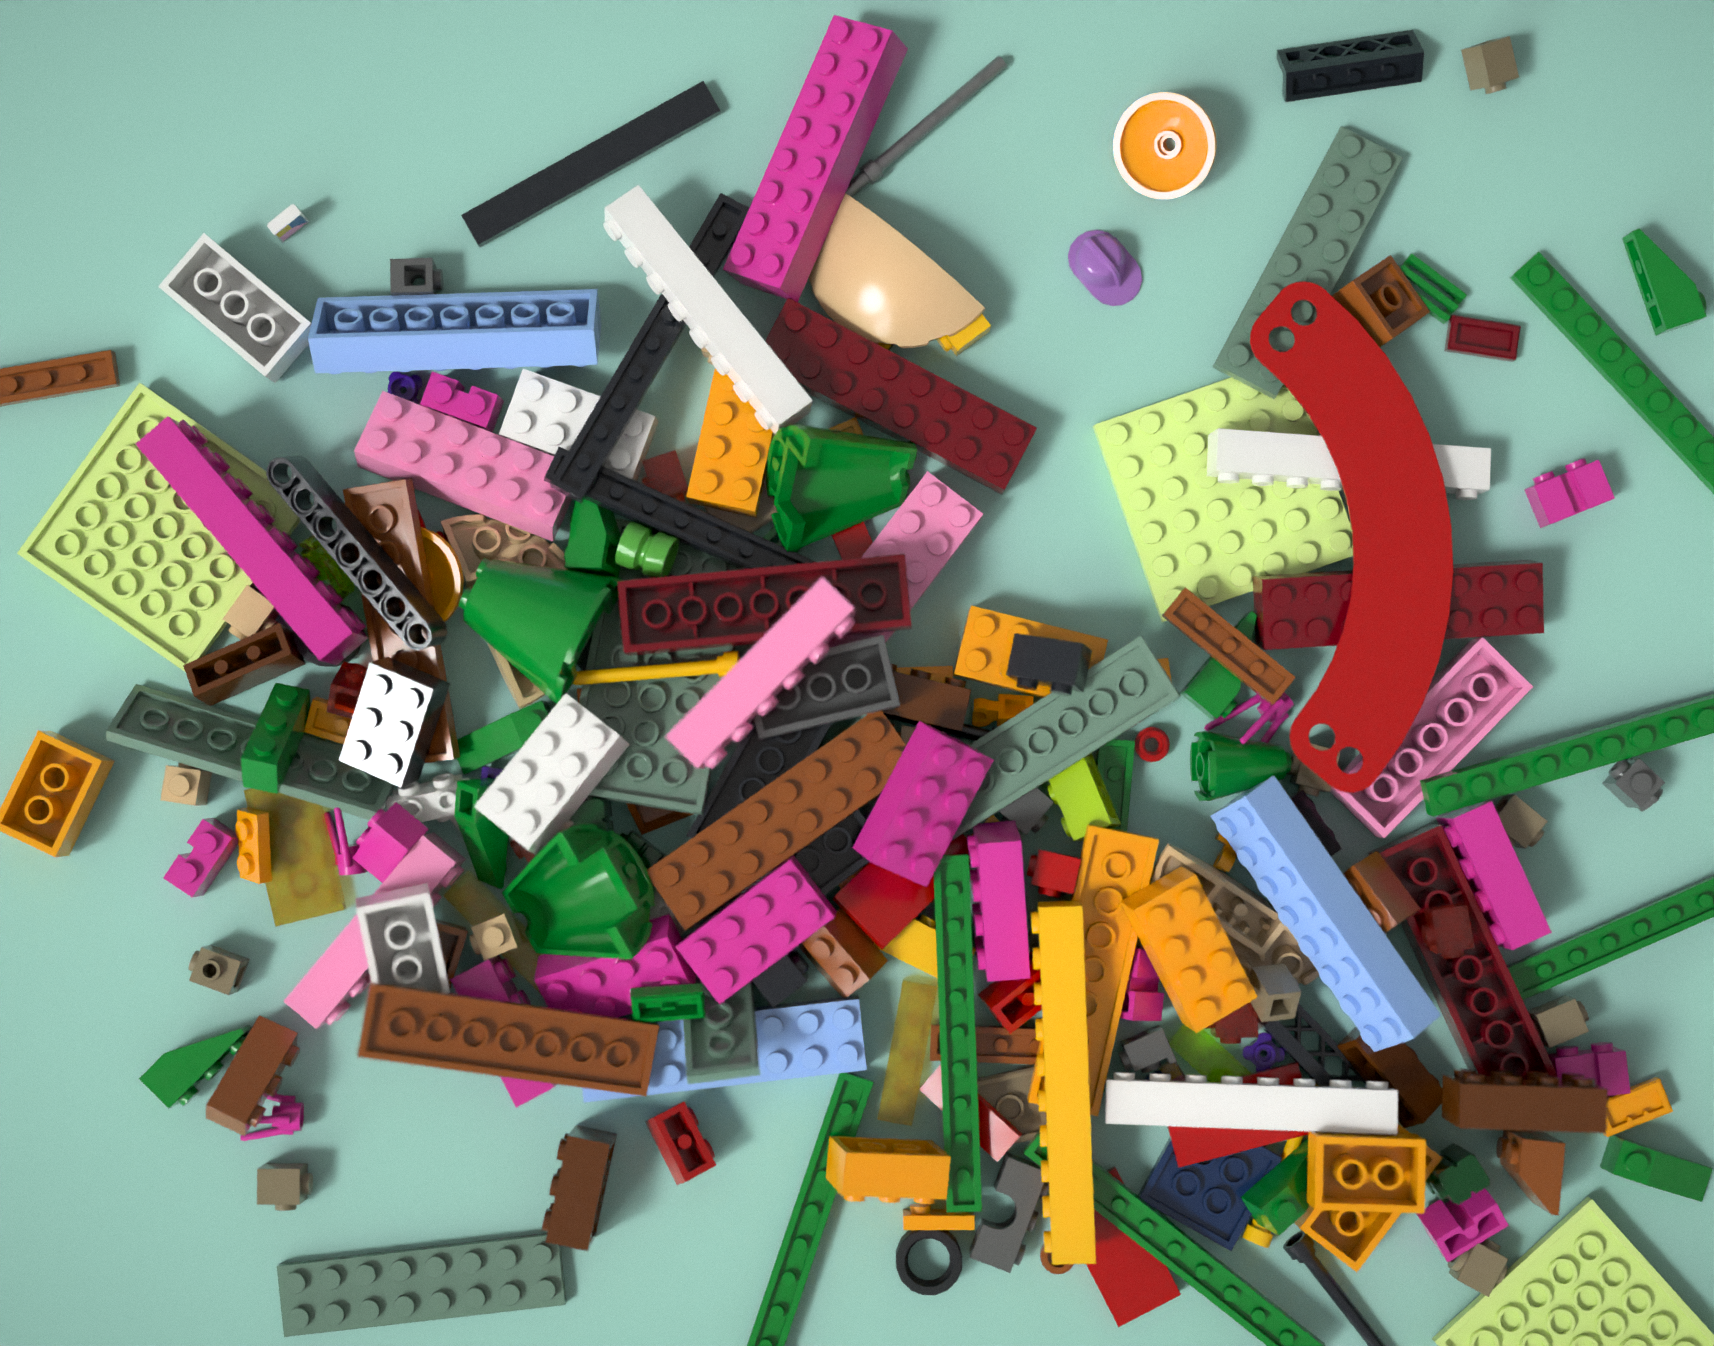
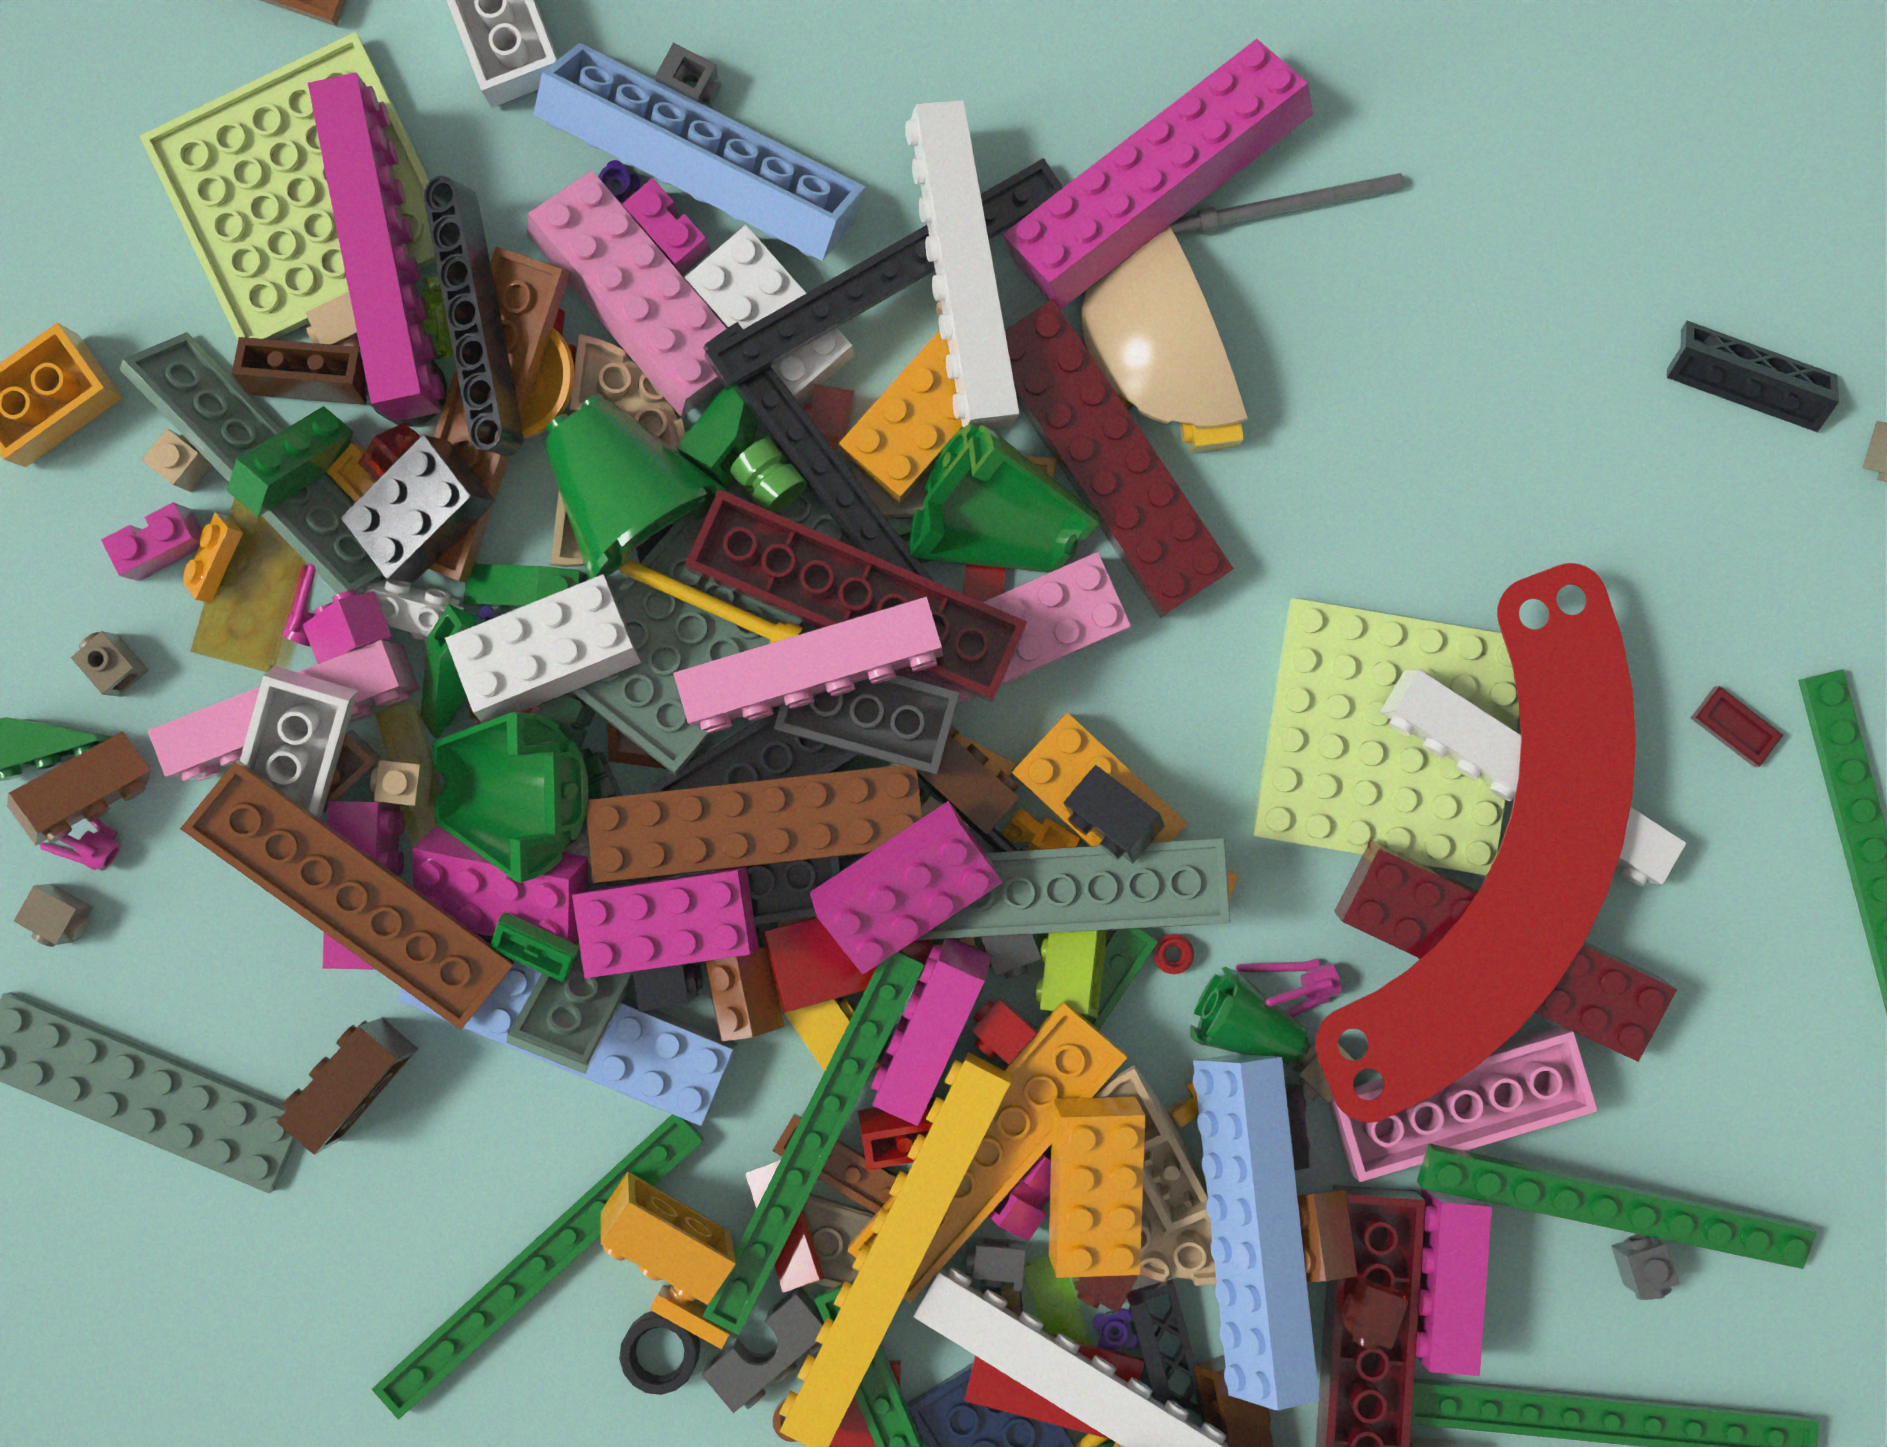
camera: 30 degrees right, 0 degrees up
(591, 164) = (929, 59): black tile -> none
(681, 1143) = (475, 1095): red brick -> none
(907, 1052) = (754, 1129): clear yellow plate -> none
(1105, 267) = (1390, 445): medium lavender piece -> none
(1142, 147) = (1494, 347): light orange dish -> none
(1213, 685) = (1282, 923): green slope -> none
(1228, 646) = (1307, 898): dark orange plate -> none
(1275, 991) = (1162, 1278): dark tan brick -> none
(1312, 248) = (1613, 540): sand green plate -> none
(1382, 301) = (1657, 632): dark orange slope -> none
(1438, 280) = (1722, 639): green tile -> none
(1520, 821) = (1508, 1240): dark tan brick -> none
(1568, 493) = (1740, 933): dark pink brick -> none

